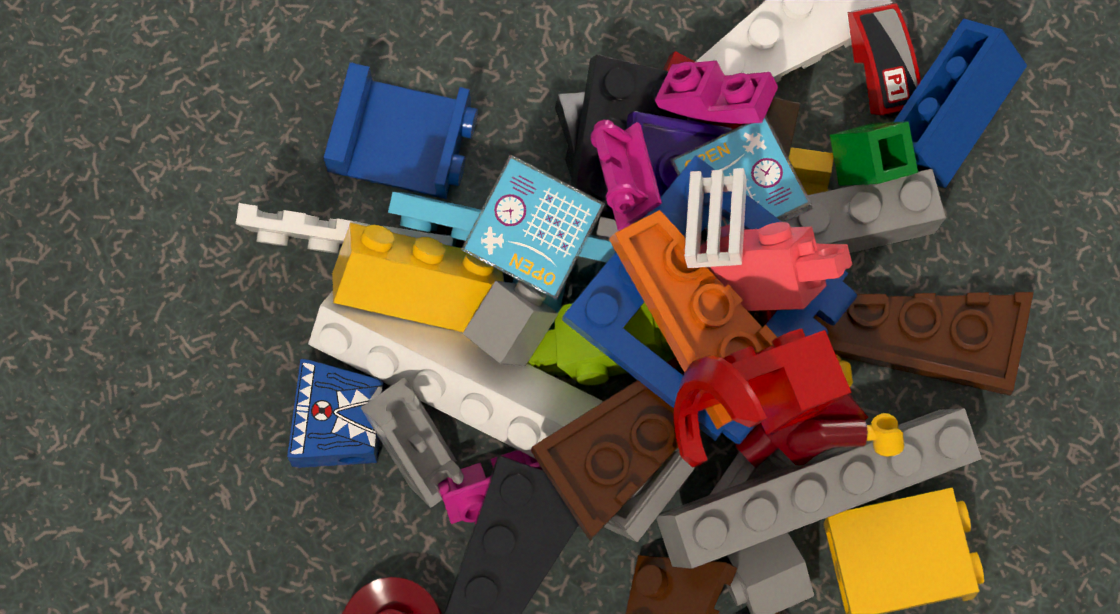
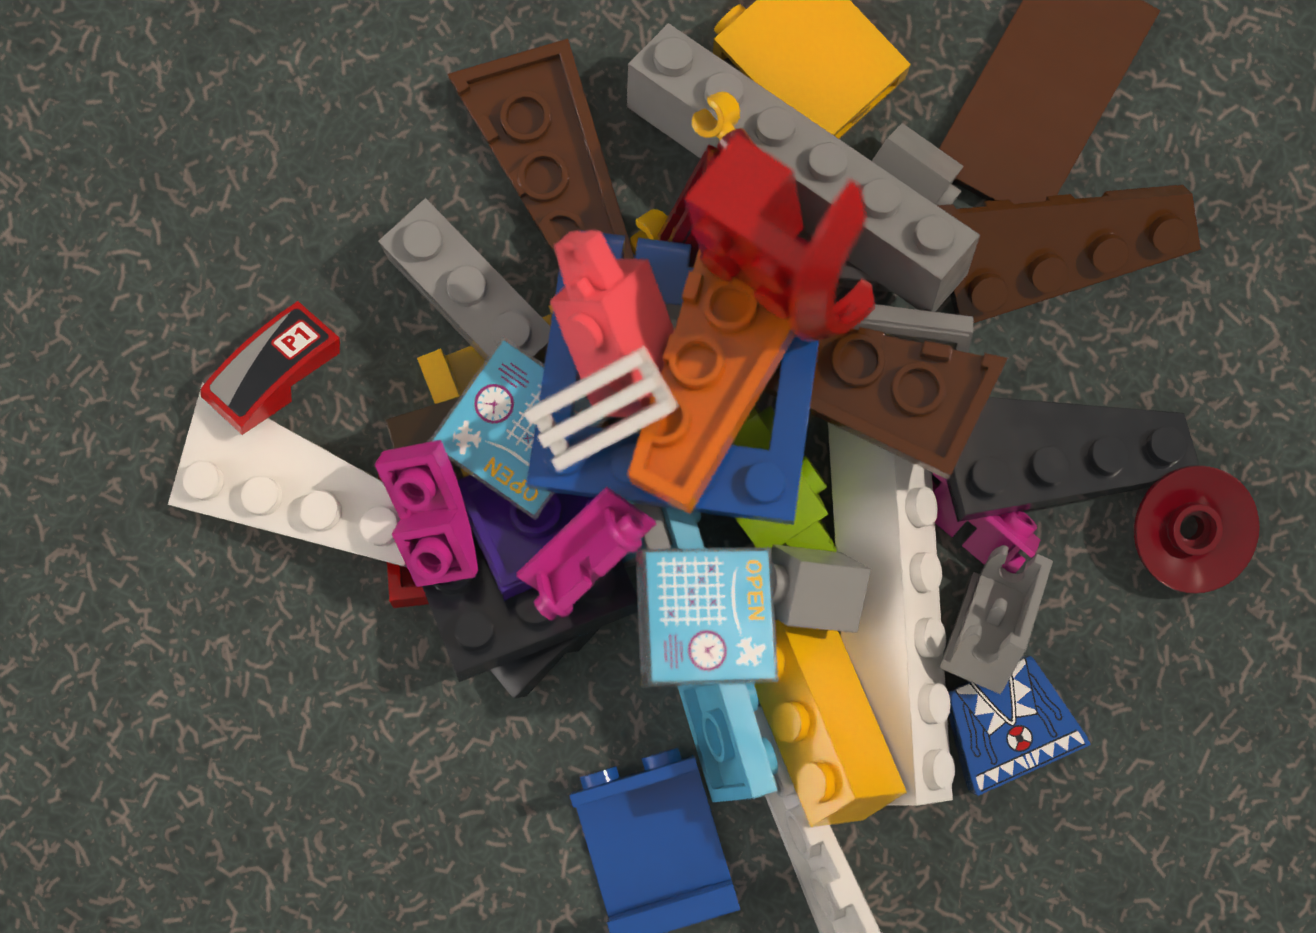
camera: 120 degrees left, 10 degrees up
(873, 153) = (398, 309): green brick -> none
(960, 97) = (281, 264): blue brick -> none

